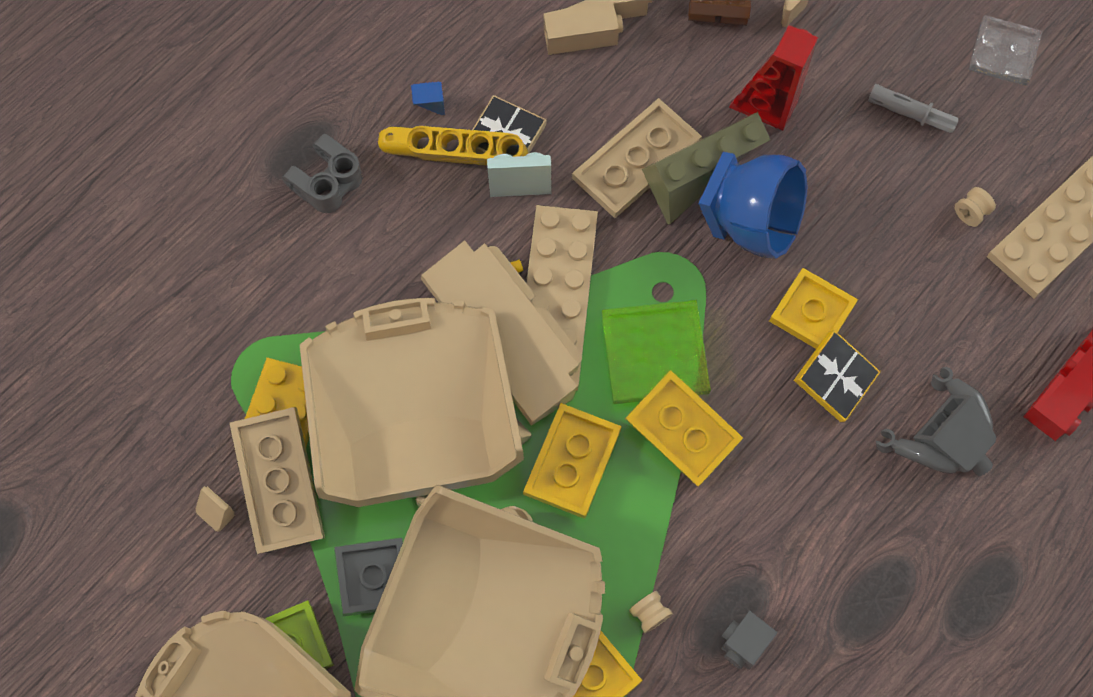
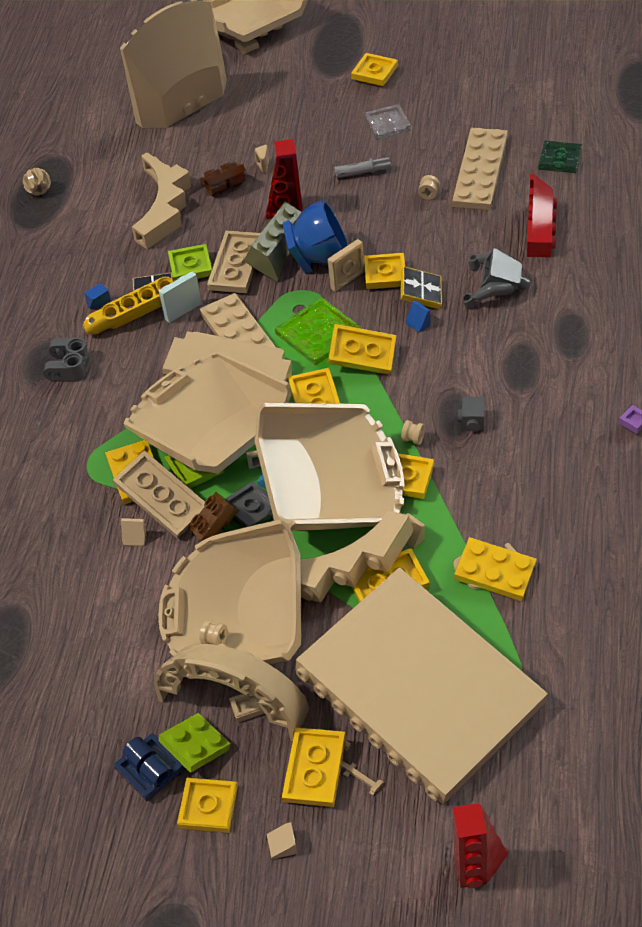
camera: 30 degrees left, 20 degrees down
(306, 571) = (214, 515): none -> reddish brown plate
(579, 120) = (190, 259): none -> lime plate
(763, 273) = (346, 265): none -> tan tile
(798, 421) = (418, 317): none -> blue slope

